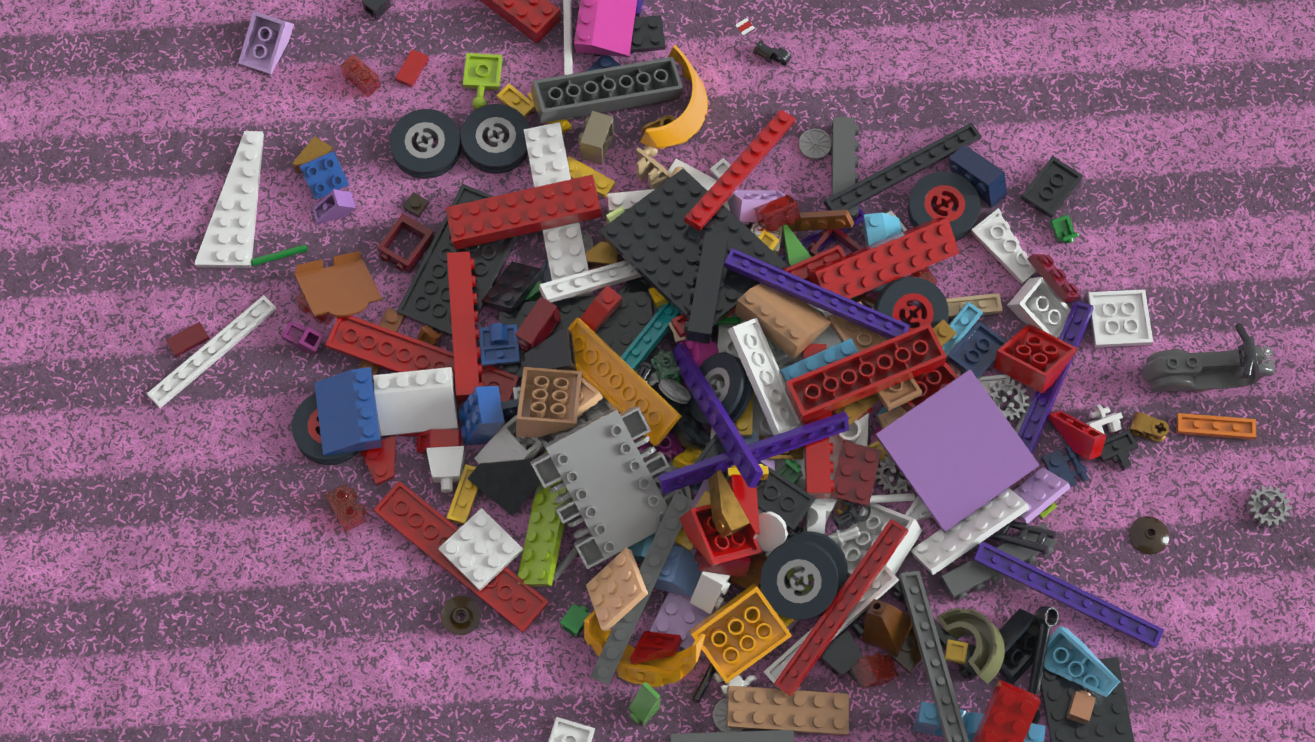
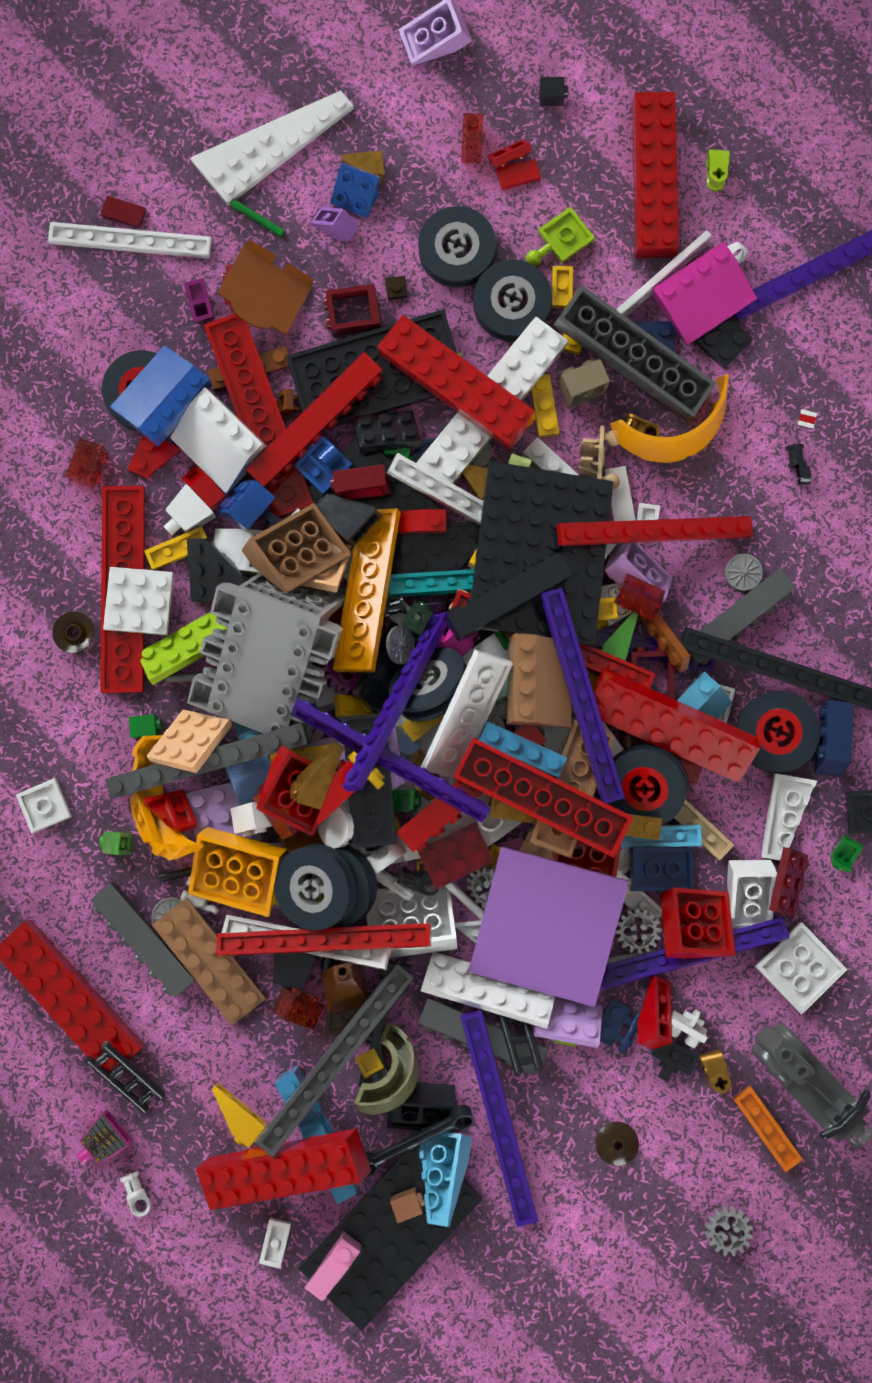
camera: 50 degrees right, 15 degrees up
(392, 61) = (514, 151): none -> red plate

